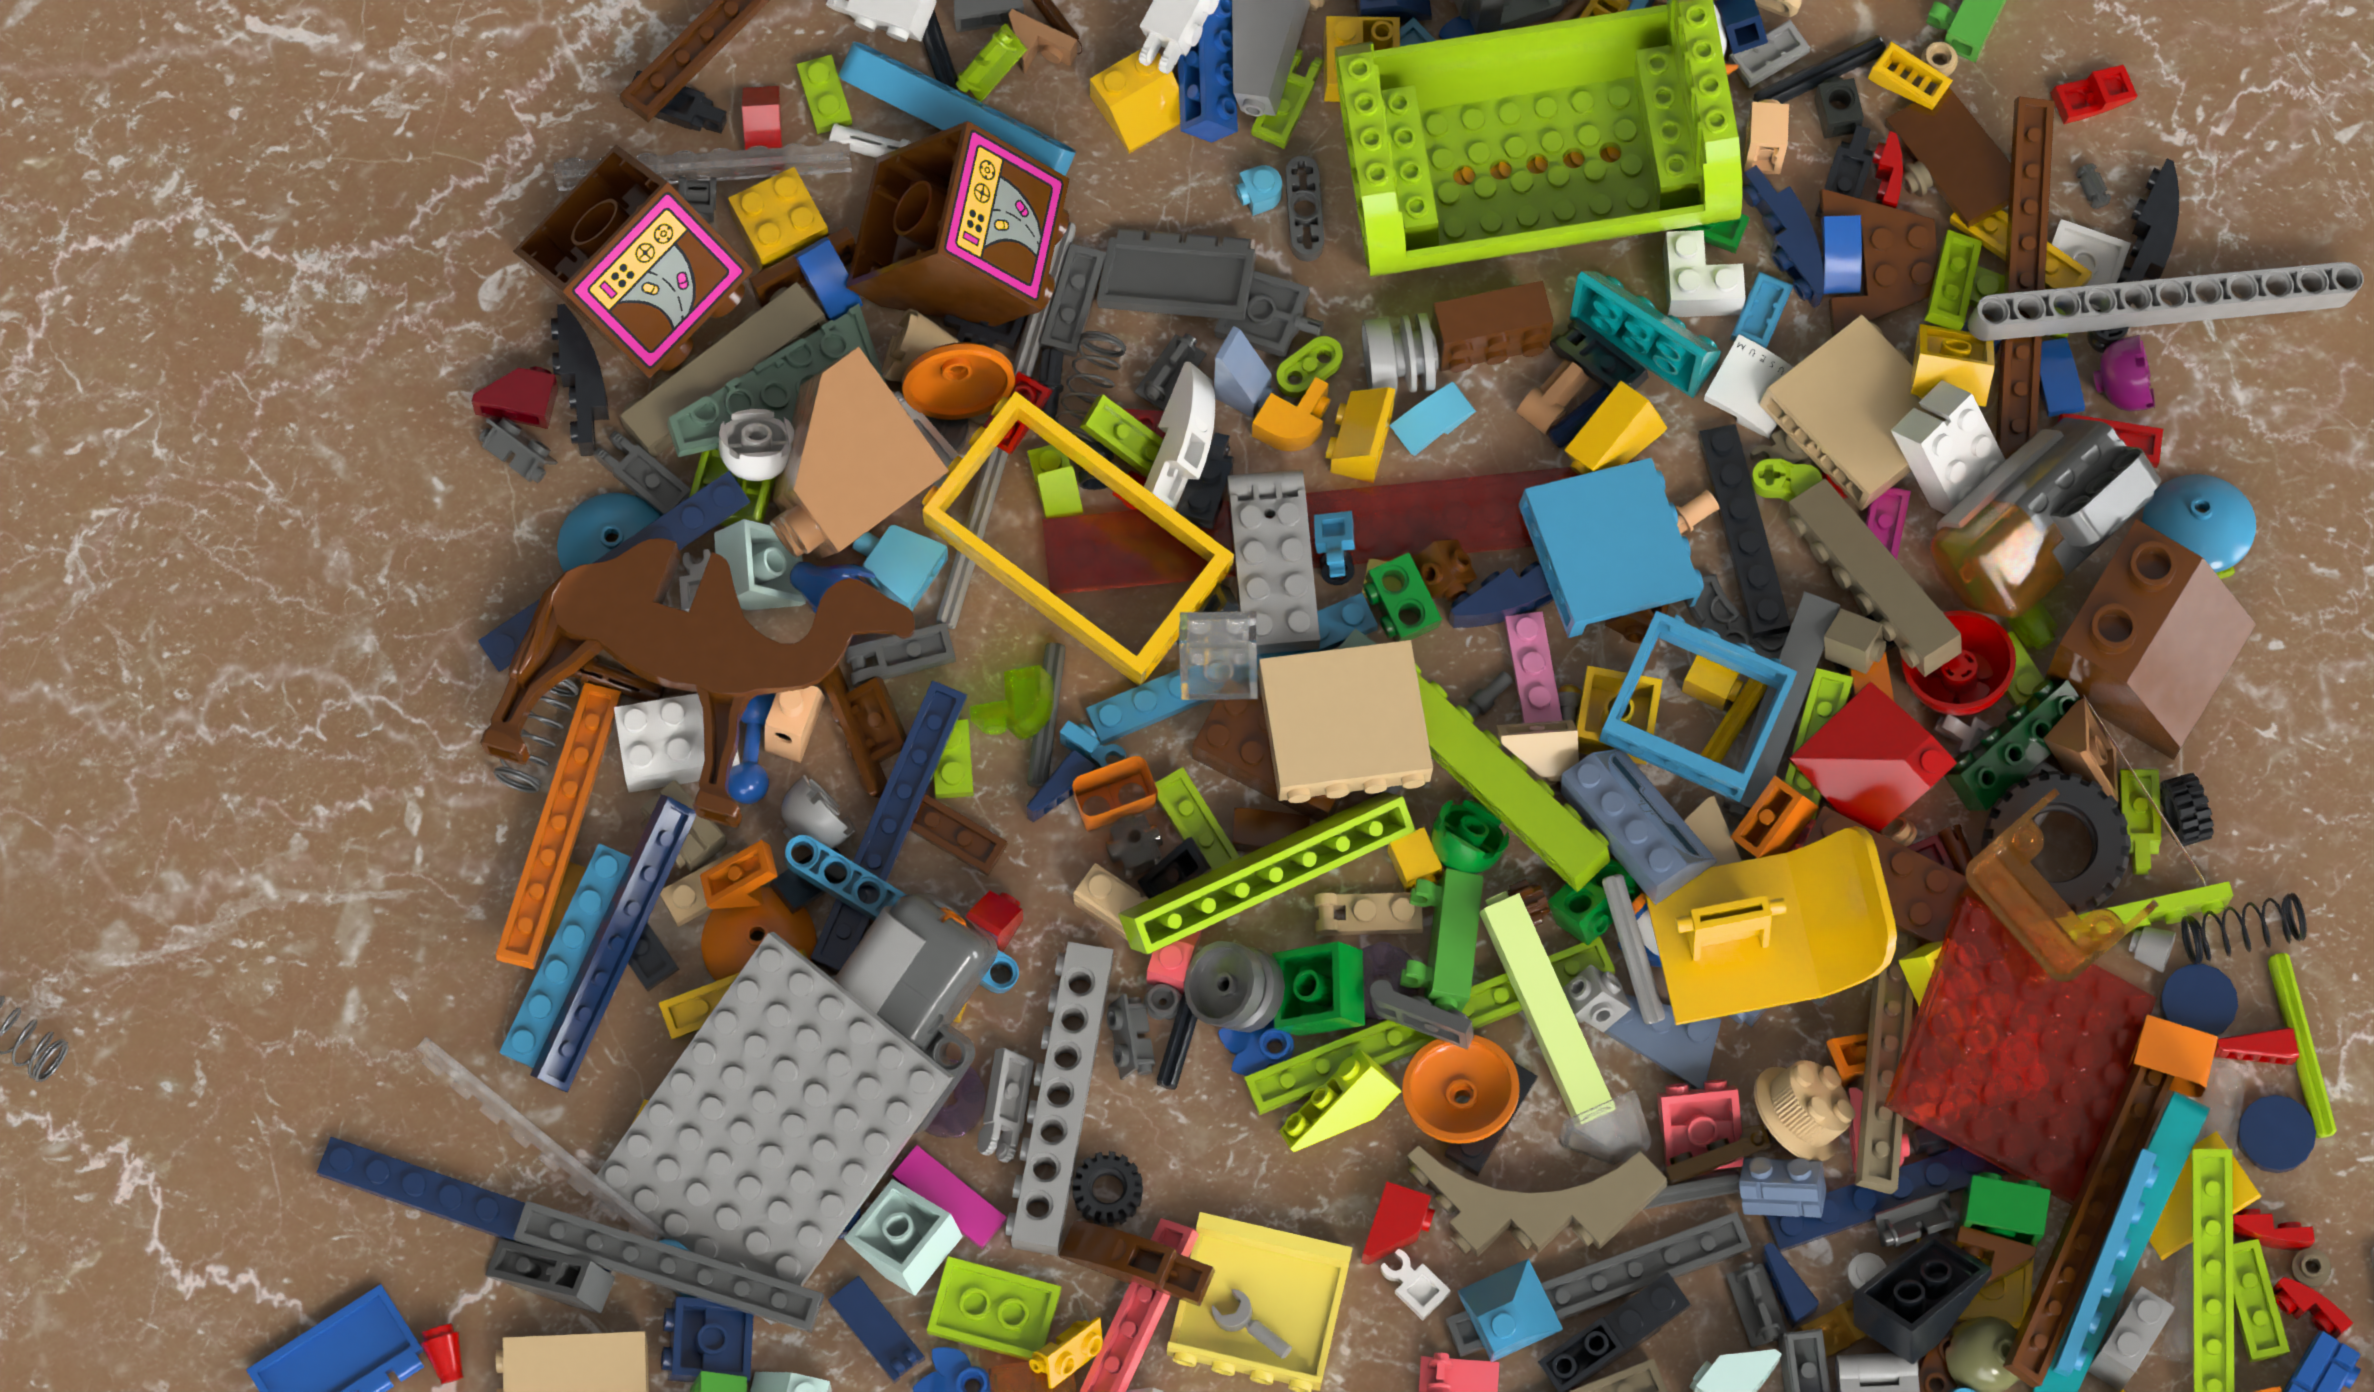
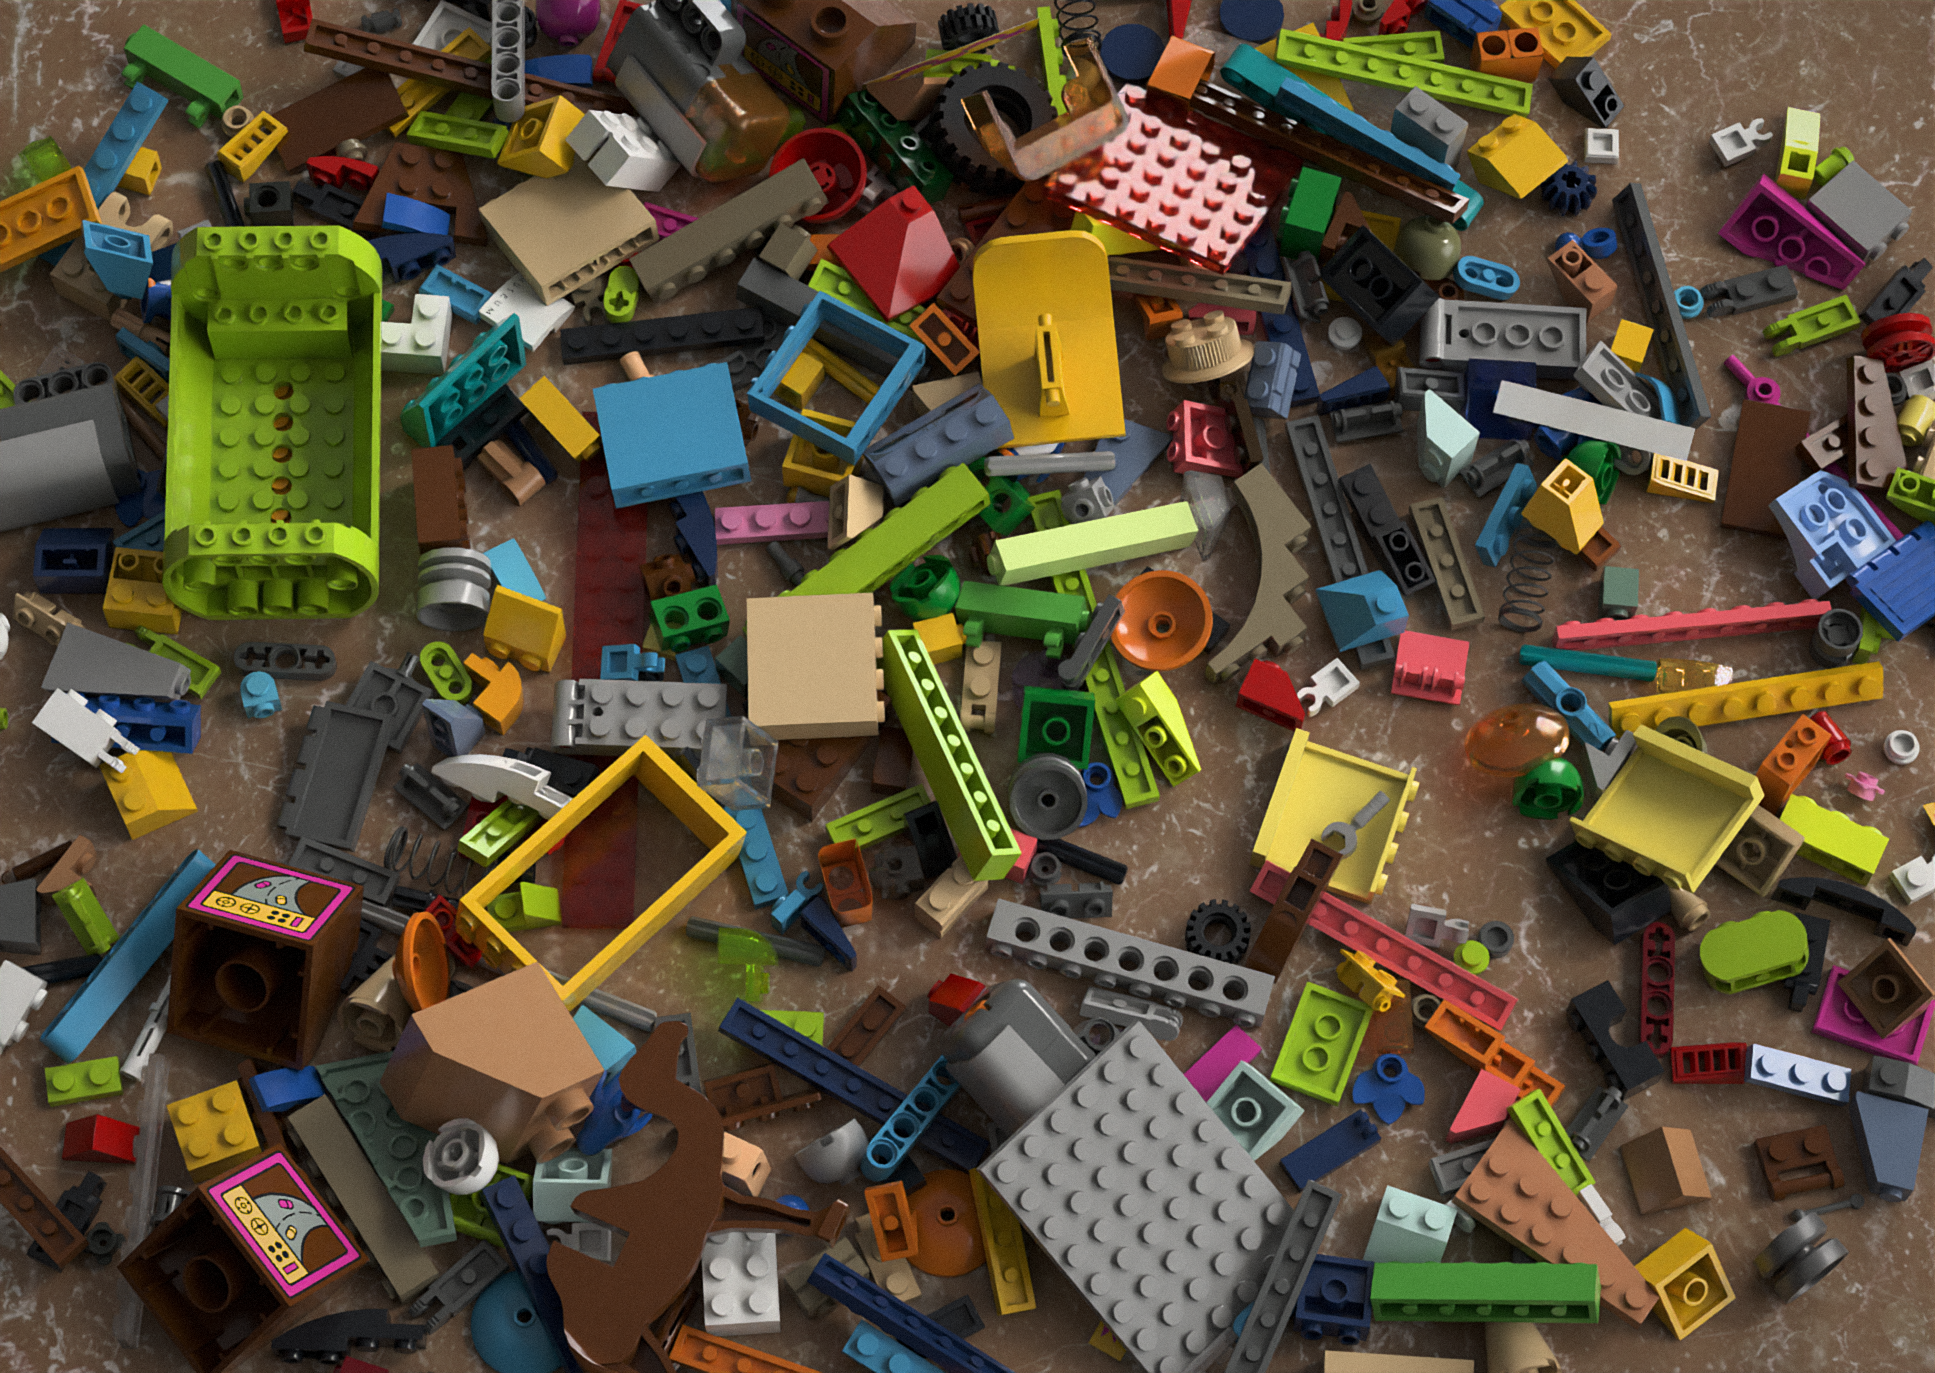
camera: 85 degrees left, 5 degrees down
(656, 129) = (99, 1233): none -> pearl dark grey plate

